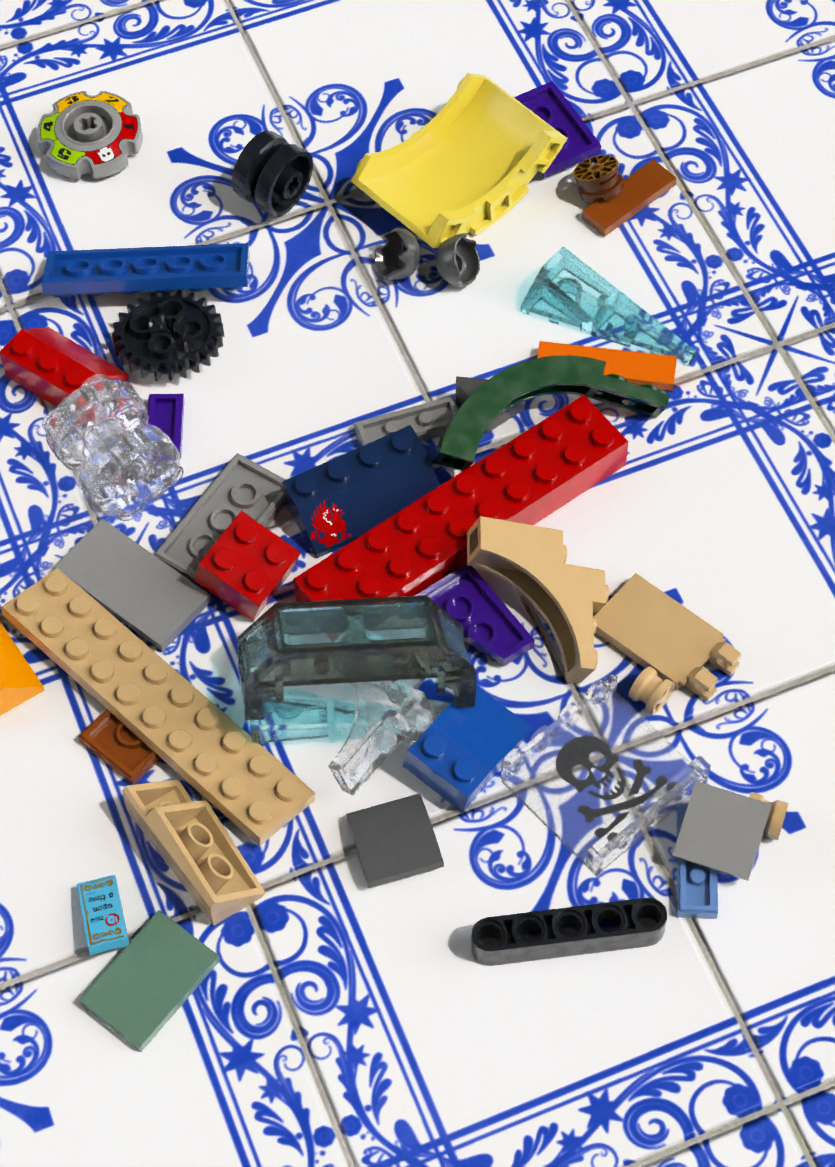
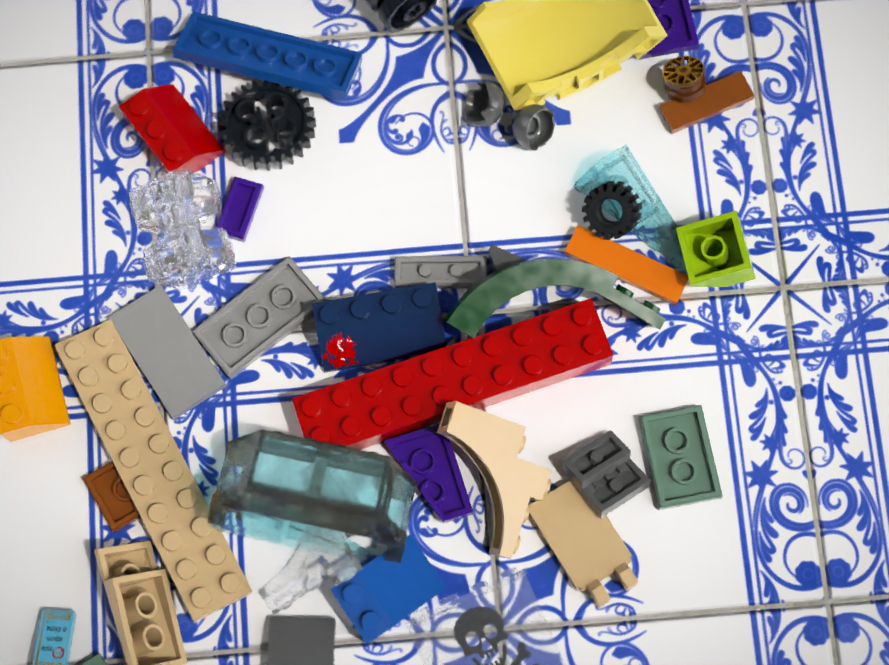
camera: 20 degrees right, 15 degrees up
(246, 566) = (260, 371): red brick -> none
(550, 312) = (594, 213): none -> black tyre
(651, 690) = (553, 588): tan wheel -> none
(662, 564) = (605, 474): none -> dark grey slope
(698, 321) = (716, 251): none -> lime slope
(735, 529) = (680, 457): none -> sand green tile

